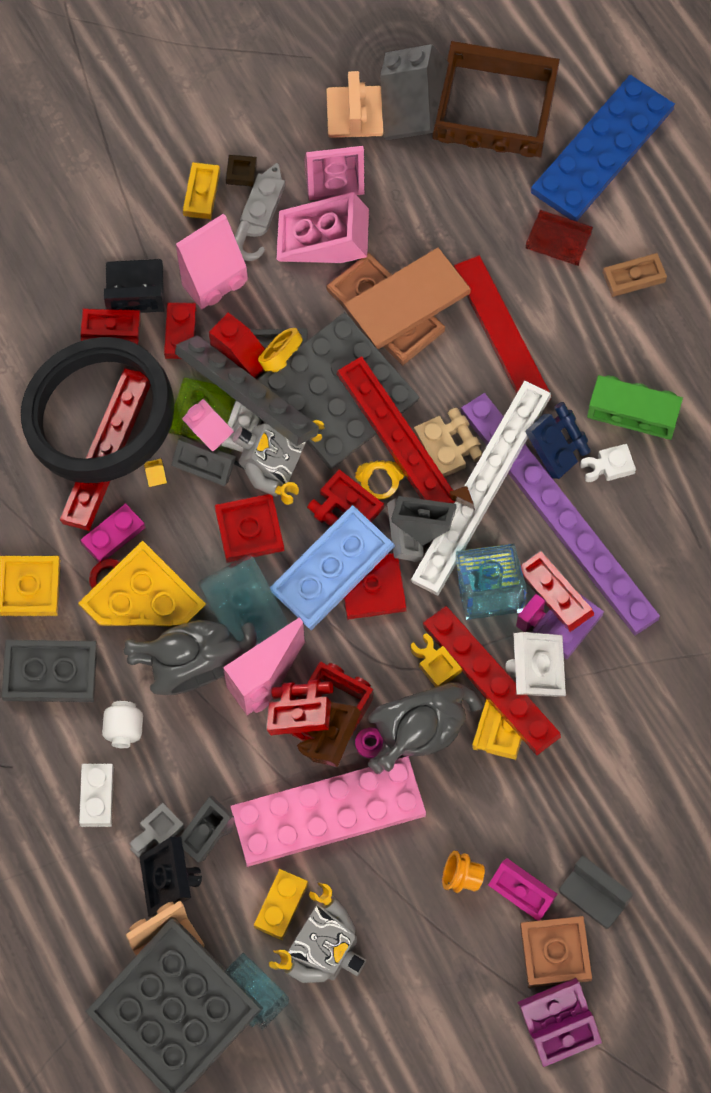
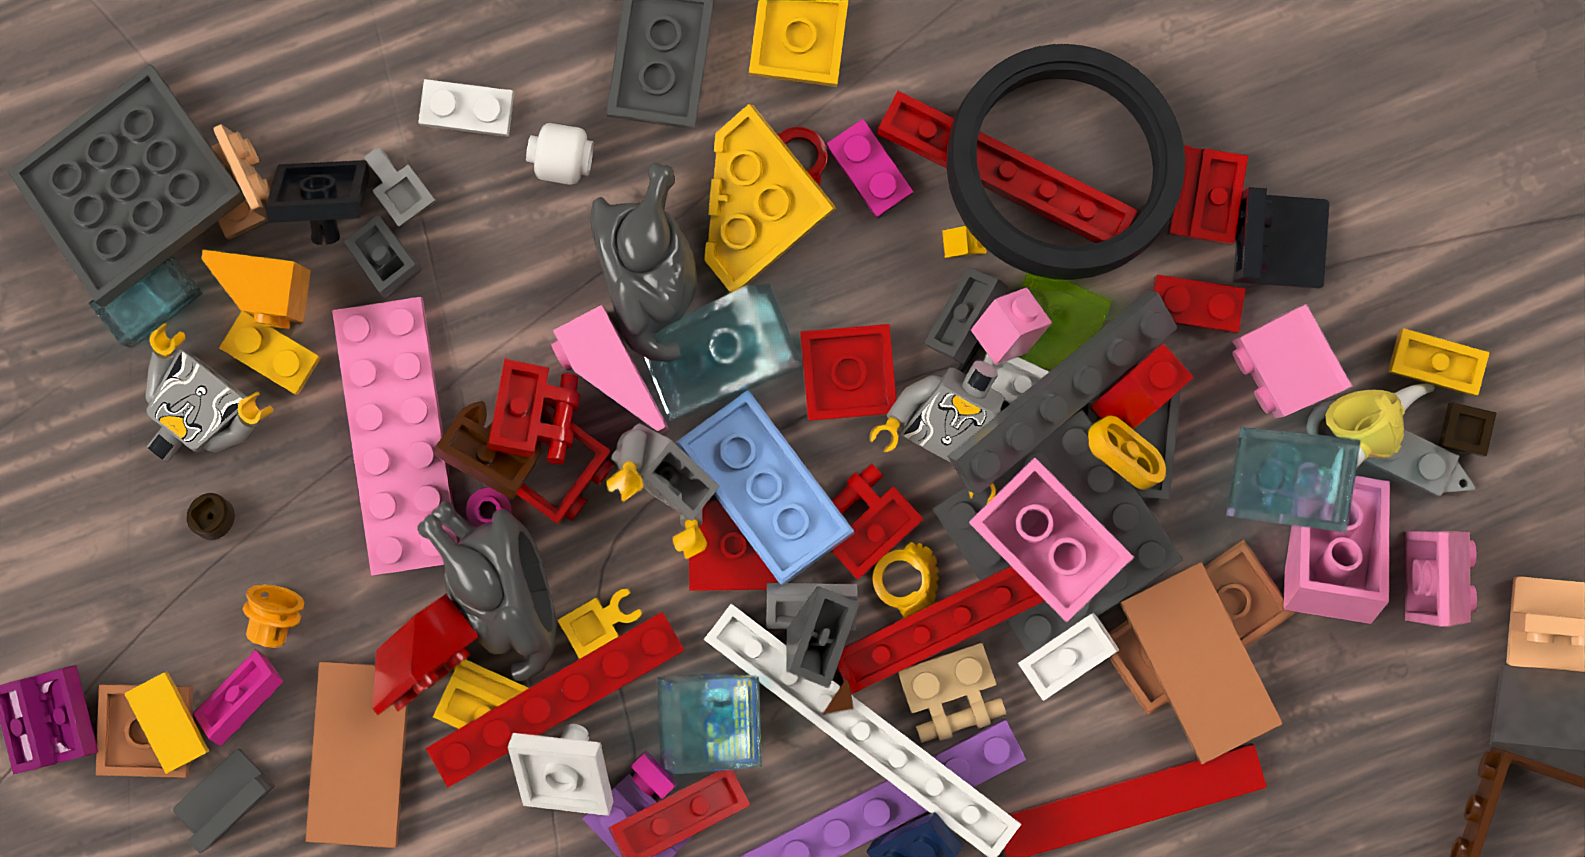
camera: 90 degrees right, 20 degrees up
(236, 904) = (262, 287): none -> light orange slope
(248, 216) = (1374, 419): none -> light yellow helmet
(285, 249) = (1293, 479): none -> clear light blue slope
(330, 622) = (667, 473): none -> light grey torso
(340, 380) = (1050, 539): none -> bright pink slope
(400, 927) = (210, 516): none -> dark brown tile
(415, 373) = (1068, 656): none -> white plate
(474, 762) = (420, 654): none -> red slope
(547, 930) = (166, 722): none -> yellow tile
(549, 807) = (354, 761): none -> nougat tile

